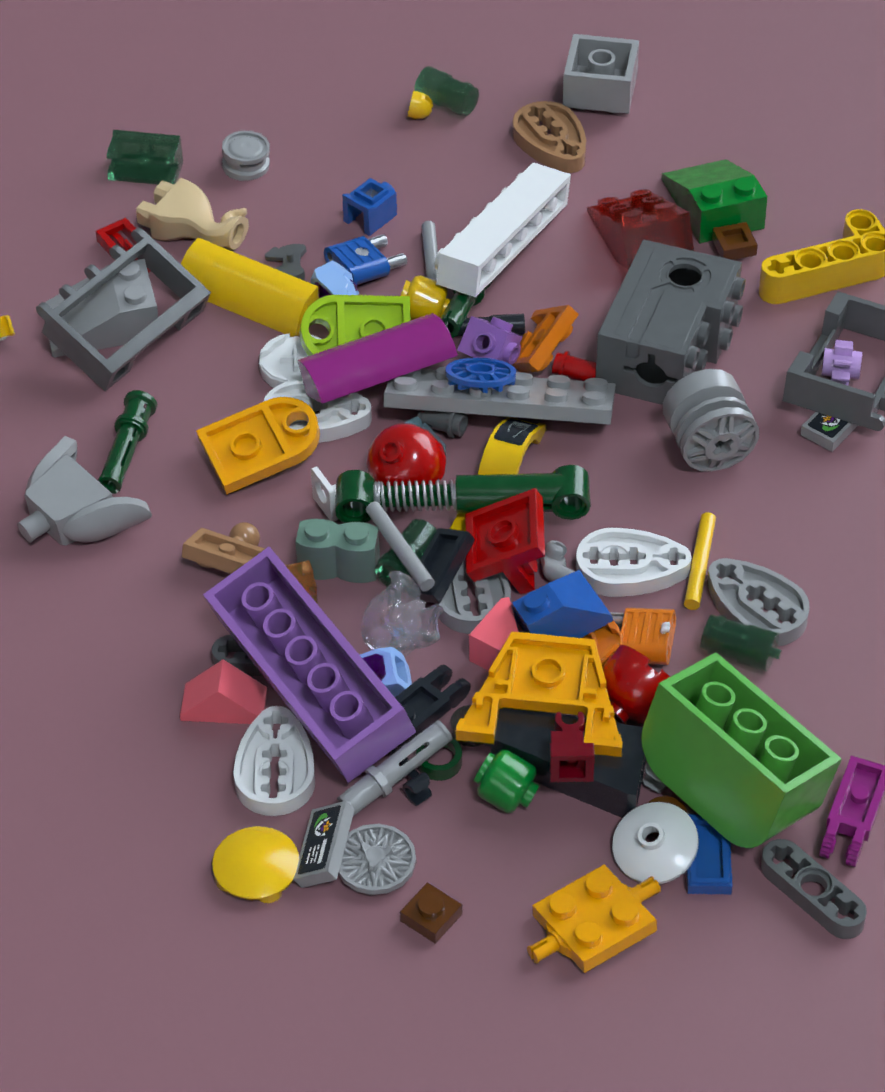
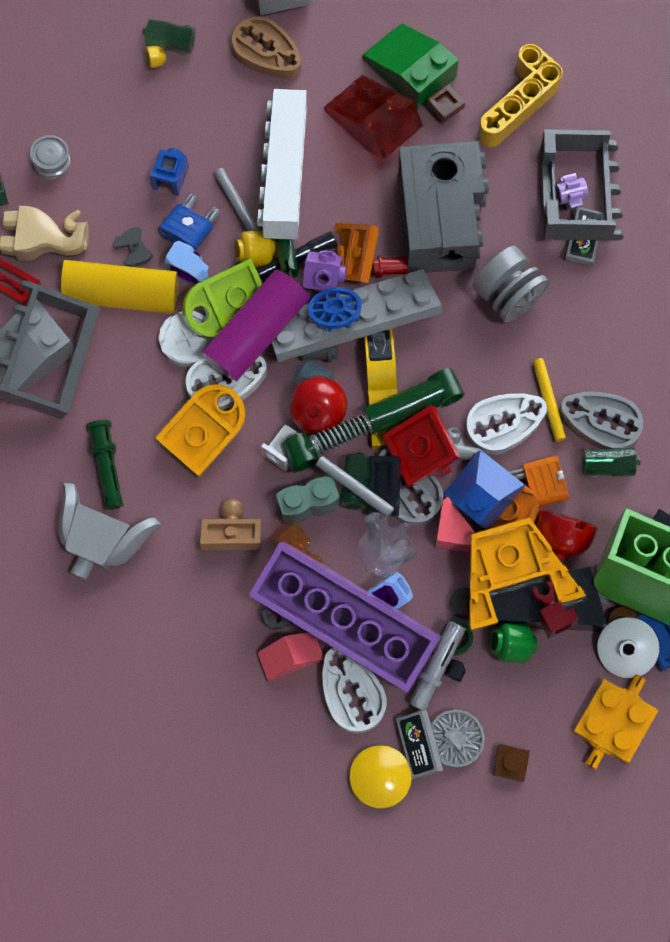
camera: 25 degrees left, 25 degrees up
(427, 703) = (427, 601): black hinge -> none

